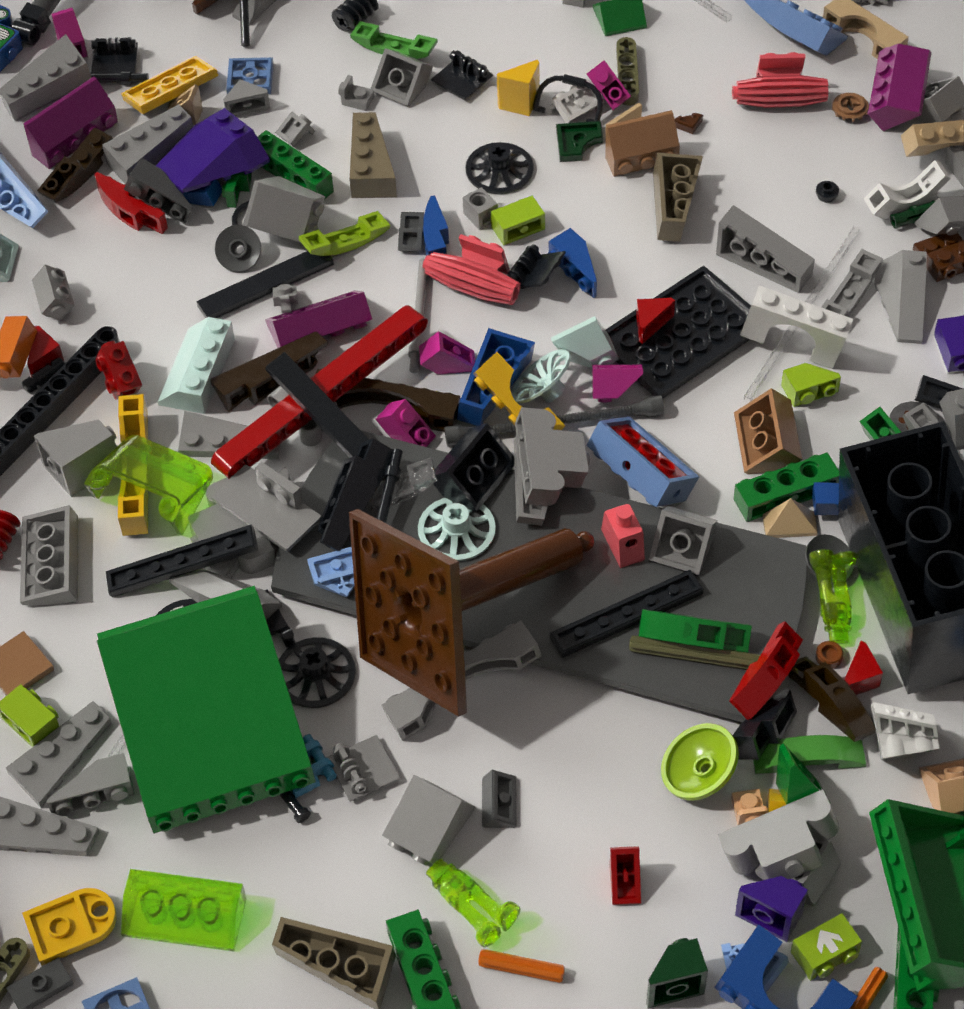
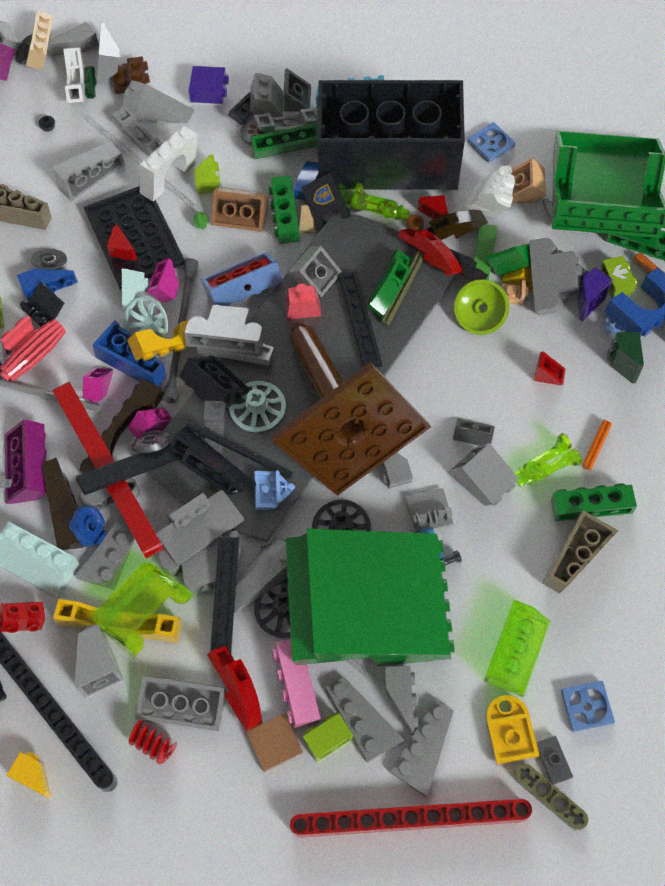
camera: 75 degrees left, 10 degrees up
(70, 673) = (297, 687): none -> bright pink brick
(72, 604) = (241, 690): none -> red slope
(250, 411) = (79, 525): none -> blue plate
(364, 423) = (150, 442): none -> flat silver tile
(610, 254) = (49, 259): none -> dark grey dish
(732, 396) = (200, 220): none -> bright green plate
(808, 522) = (324, 198): none -> black flag

